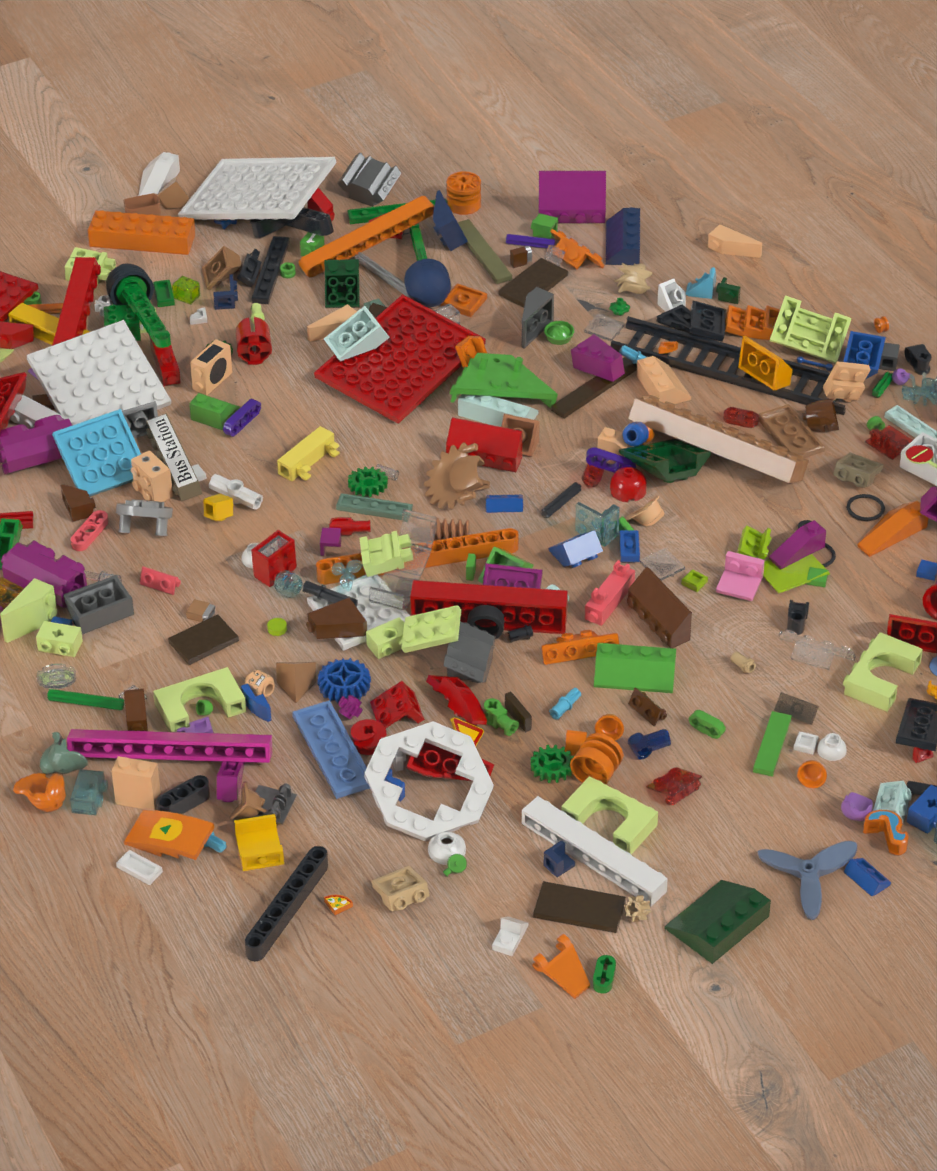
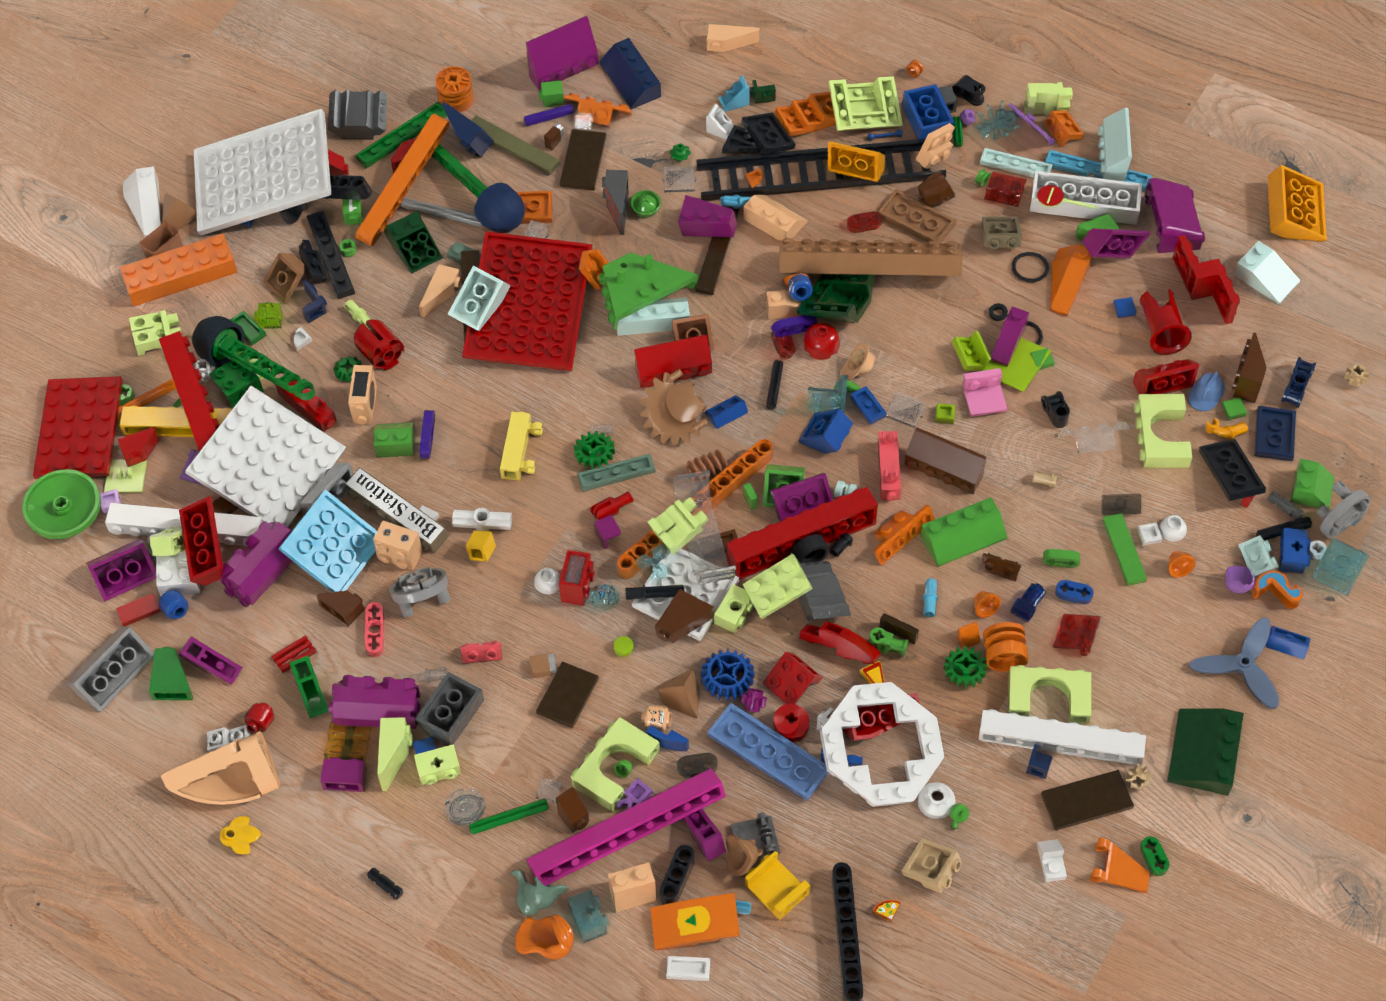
camera: 30 degrees left, 15 degrees up
(261, 727) = (696, 763): none -> clear smoke plate
(633, 279) = (675, 116): tan hair -> none
(699, 755) = (1074, 592): none -> blue beam

